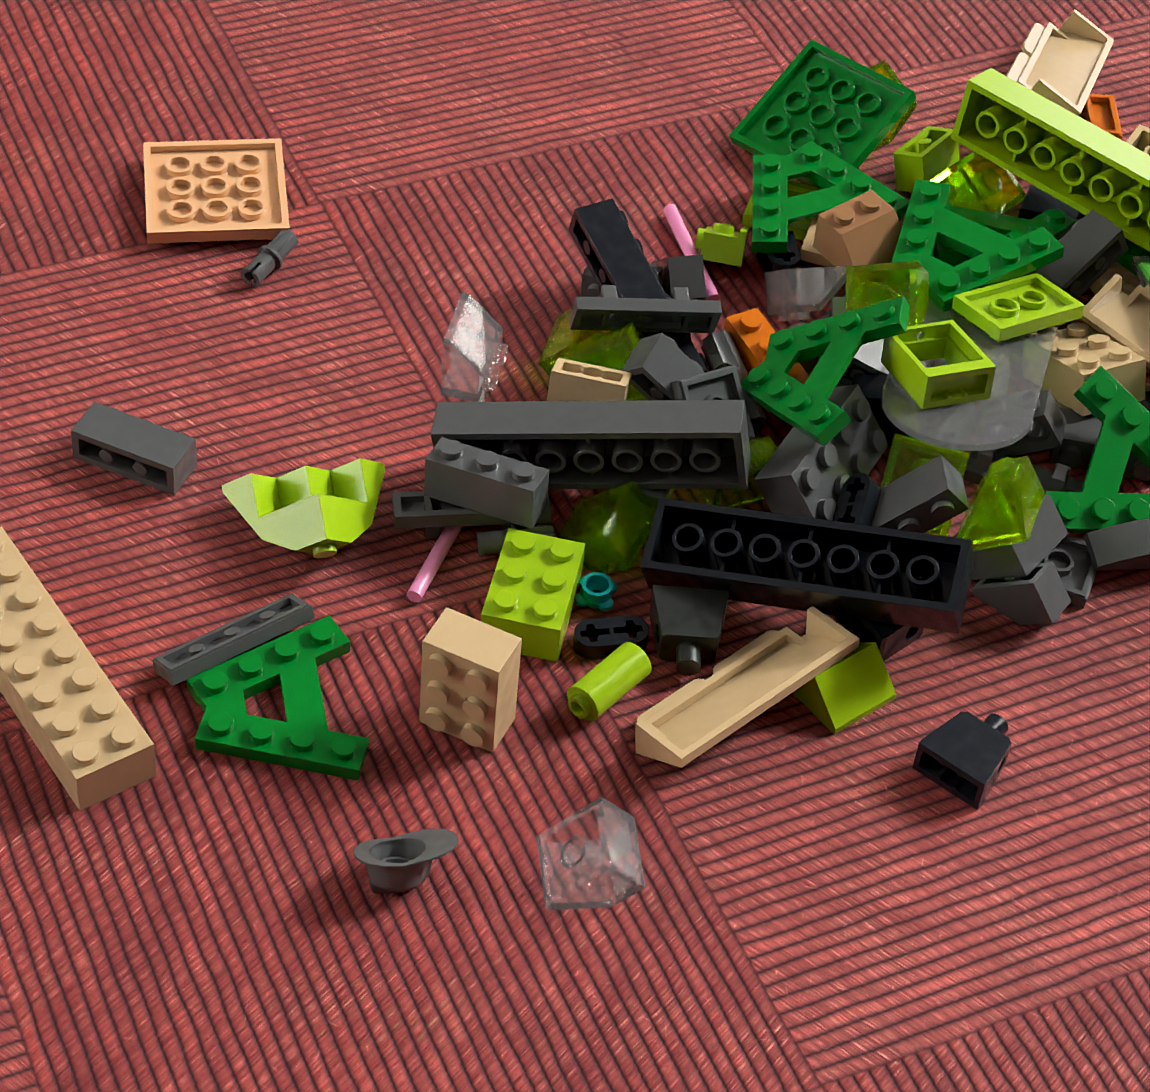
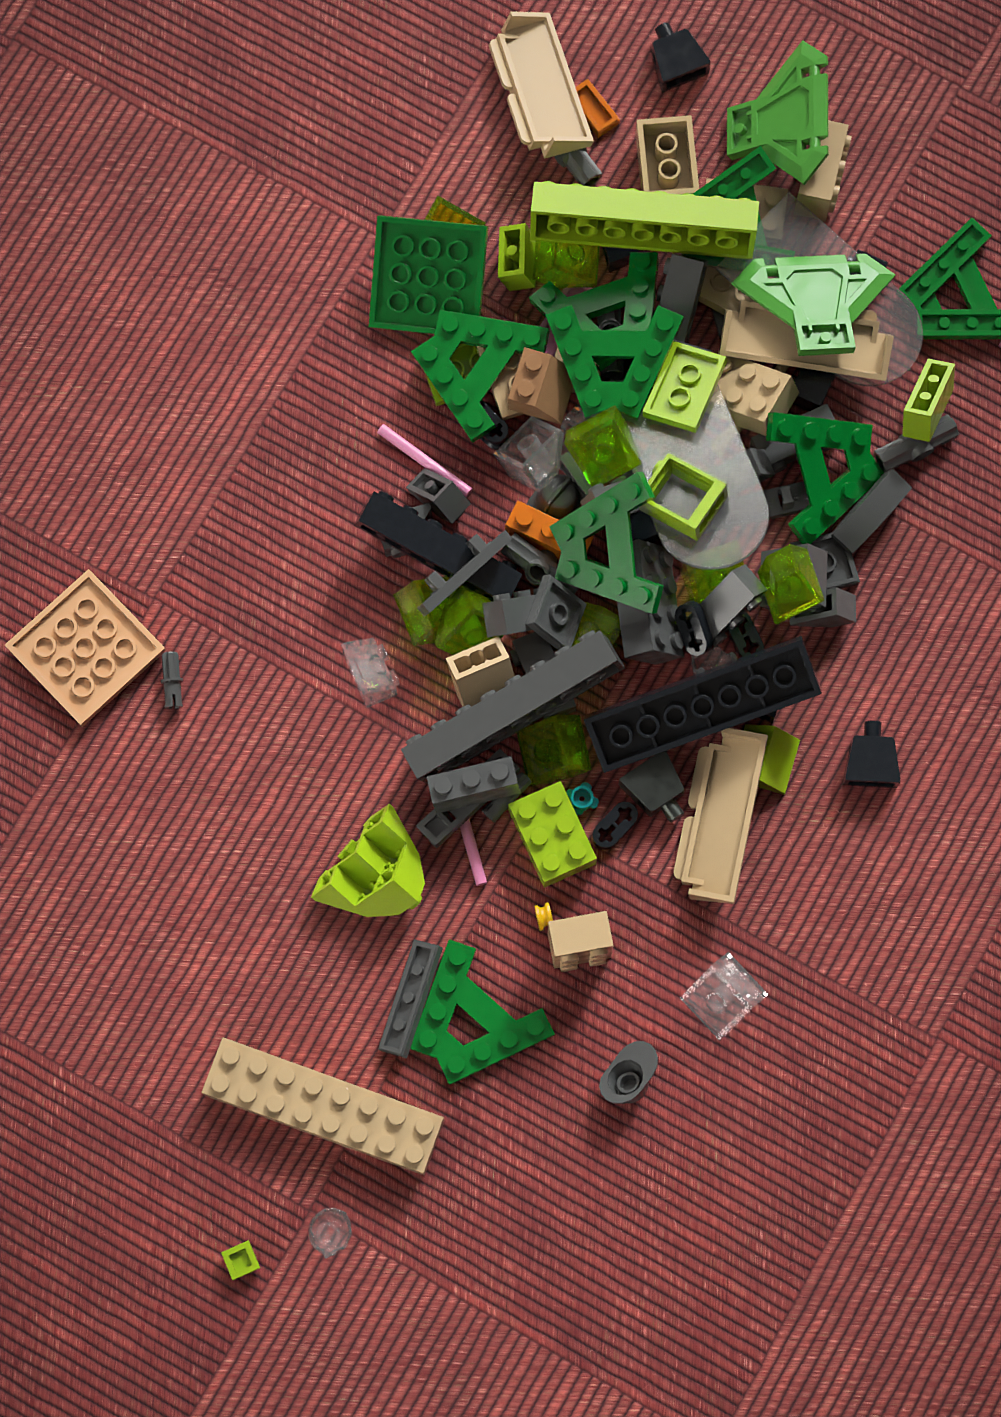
camera: 30 degrees left, 30 degrees up
(134, 448) = (231, 905): dark grey brick -> none
(608, 681) = (641, 864): lime brick -> none
(722, 243) = (445, 444): lime brick -> none

